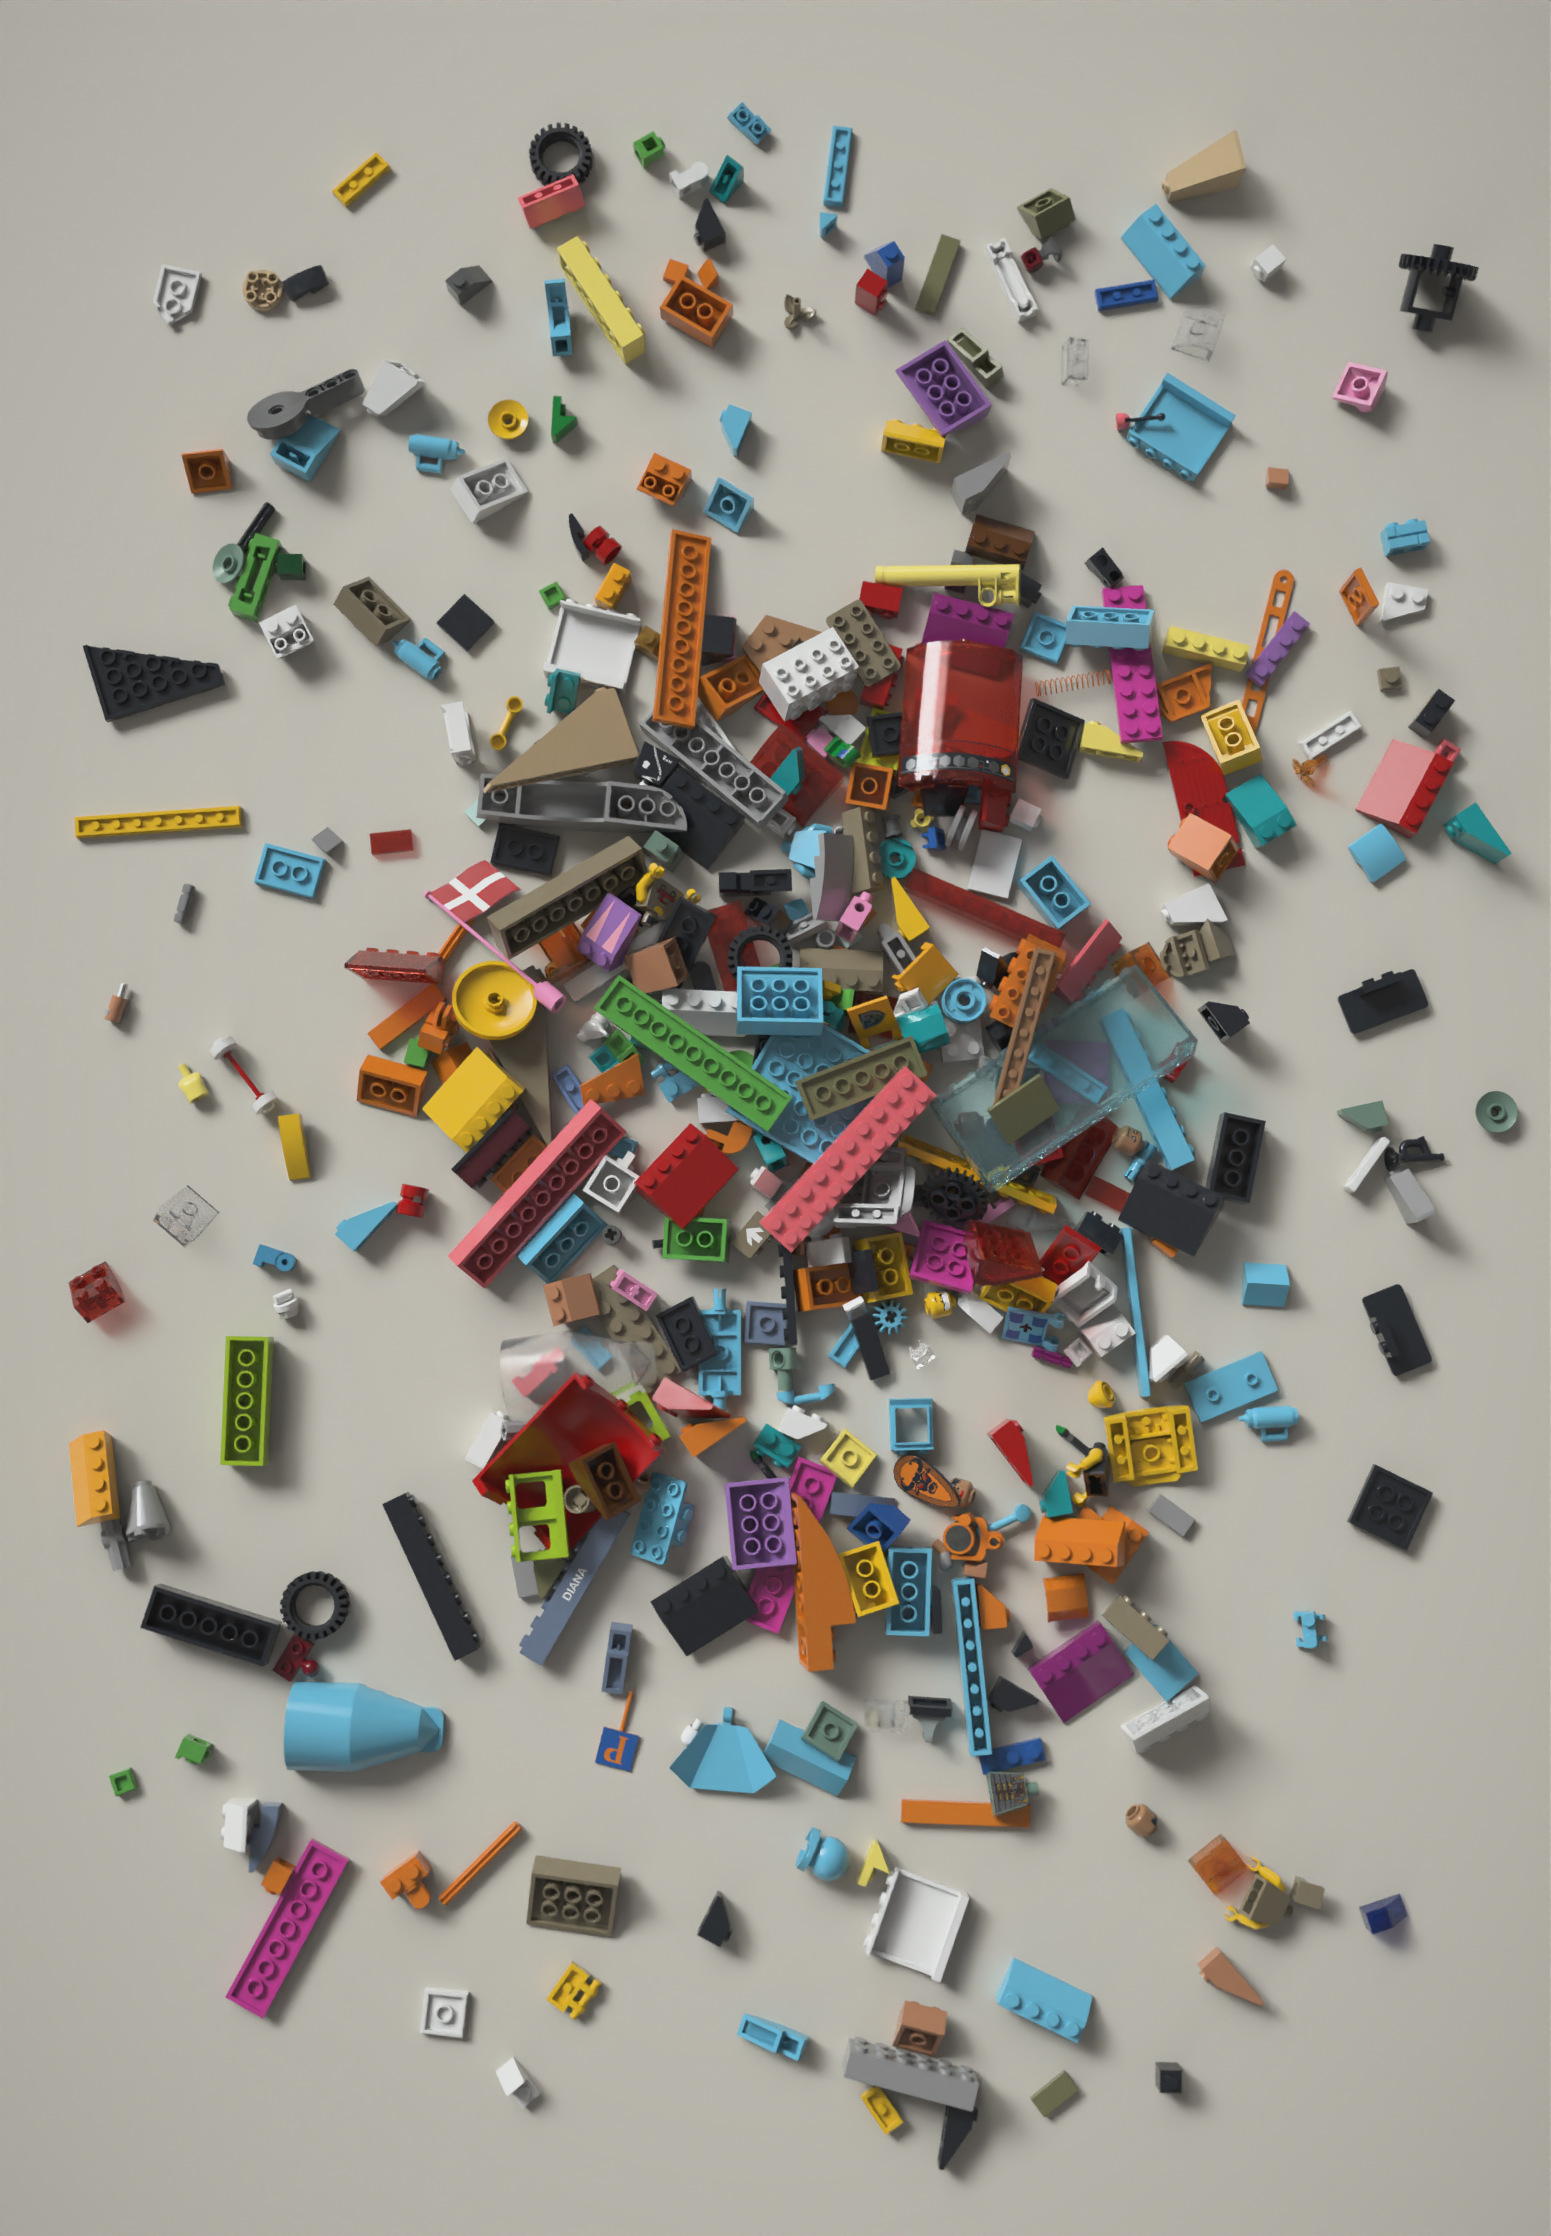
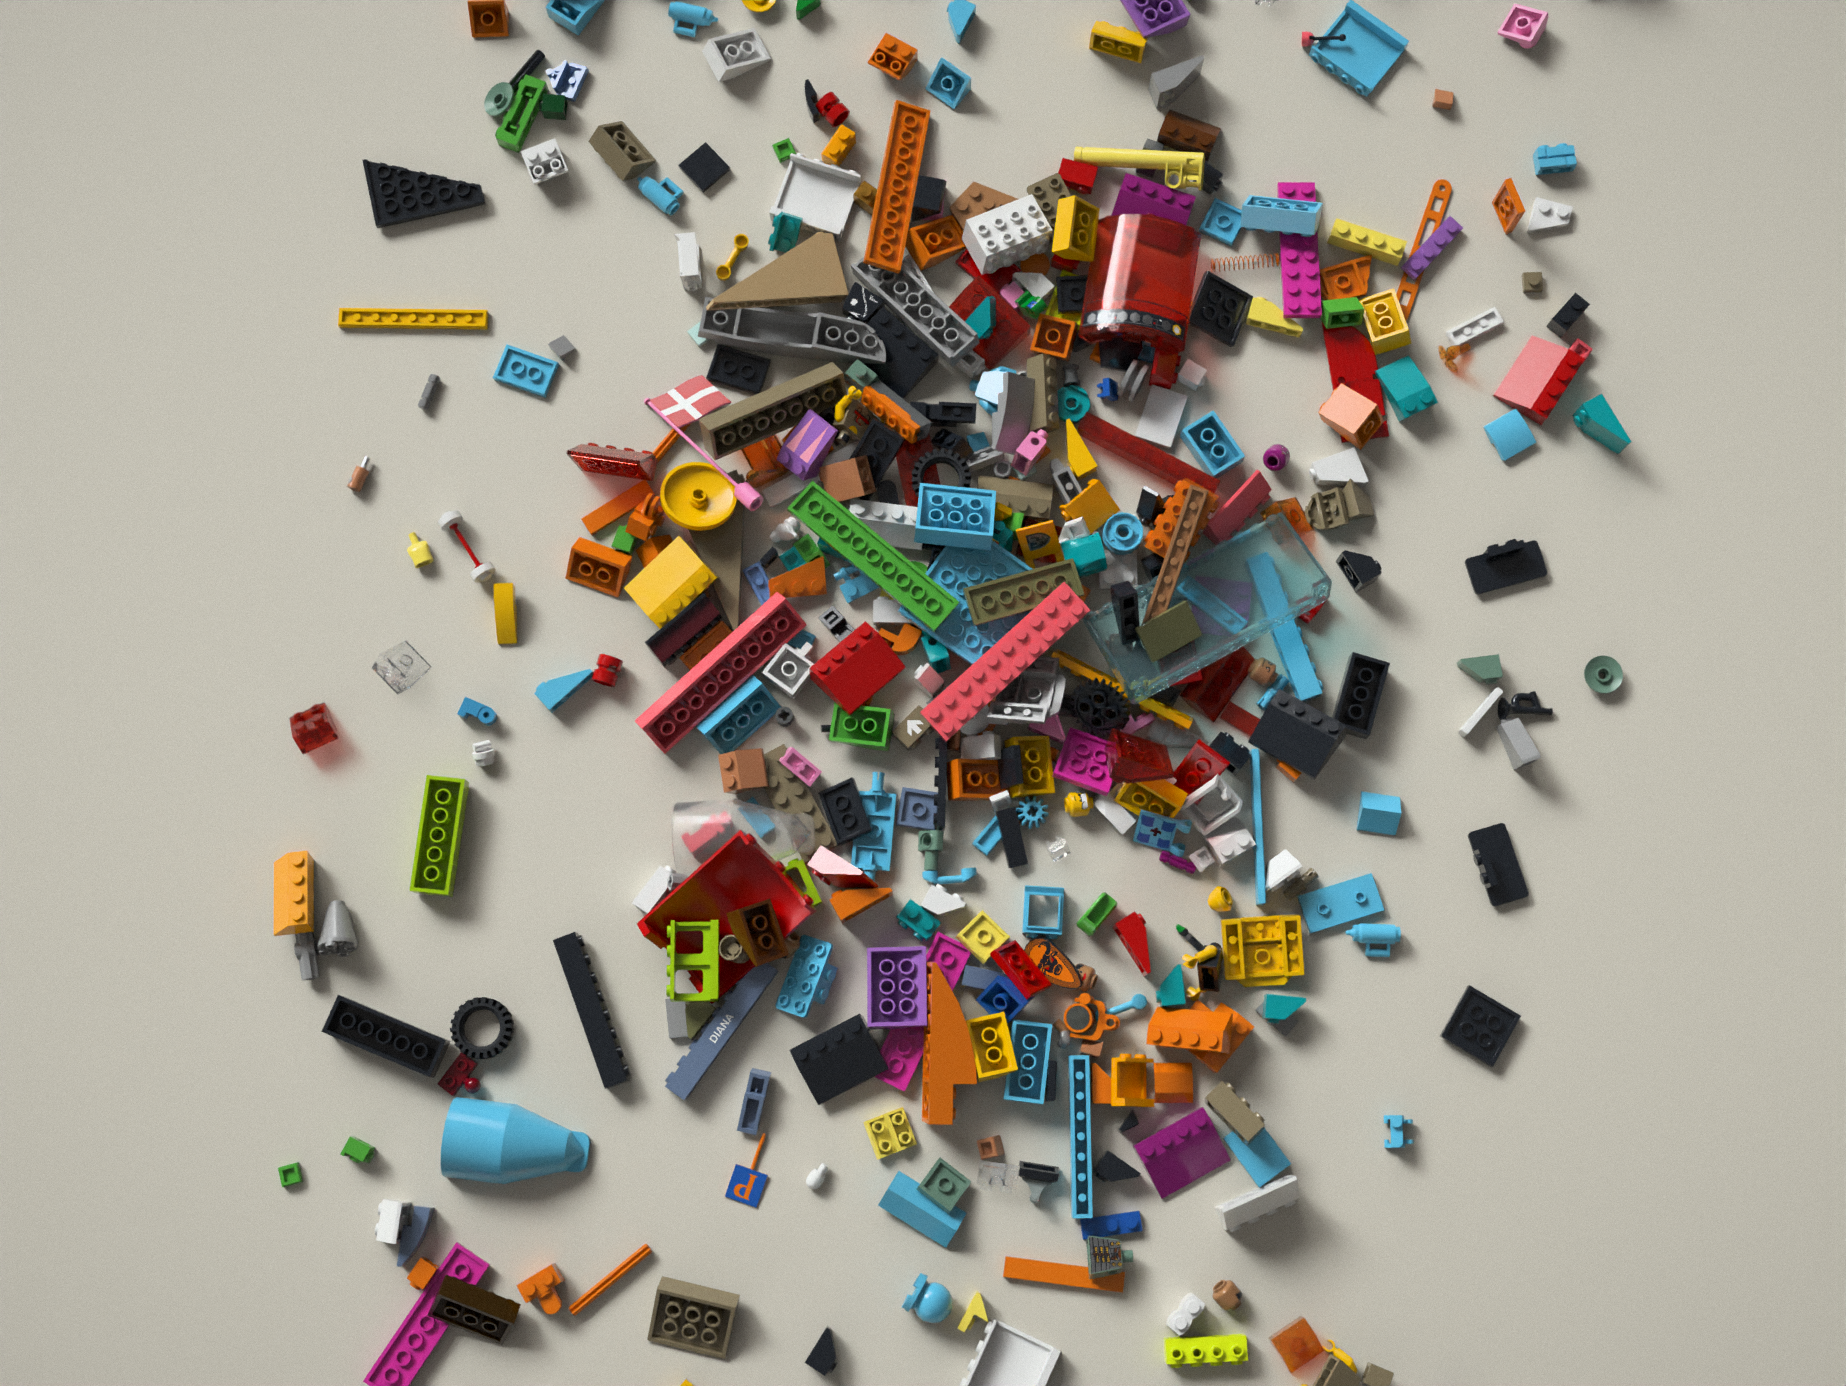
camera: 10 degrees right, 5 degrees down
(303, 534) = (568, 79): none -> medium blue slope
(337, 1910) = (474, 1309): none -> dark brown slope
(391, 842) = (620, 353): clear red tile -> none
(578, 1059) = (769, 557): none -> black tile
(659, 1127) = (836, 623): none -> slope
(703, 887) = (895, 412): none -> orange piece
(724, 1759) = (843, 1203): medium azure panel -> none
(757, 1459) = (899, 931): black piece -> none
(766, 1679) = (890, 1133): none -> light yellow slope
(875, 1684) = (990, 1147): none -> nougat slope
(884, 663) = (1075, 229): none -> yellow slope
(892, 1491) = (1020, 969): none -> red tile
(919, 813) = (1093, 373): light yellow plate -> none
(969, 1423) = (1097, 914): none -> bright green animal
(975, 1091) = (1126, 611): none -> black slope
(1019, 1602) = (1129, 1081): none -> light orange panel
(1095, 1849) = (1181, 1318): none -> white brick
(1104, 568) = (1281, 165): black leg -> none
(1123, 1880) = (1205, 1349): none -> neon yellow brick
(1124, 901) = (1276, 457): none -> magenta head
(1175, 1508) = (1280, 1007): none -> teal slope
(1184, 732) = (1341, 312): none -> bright green brick

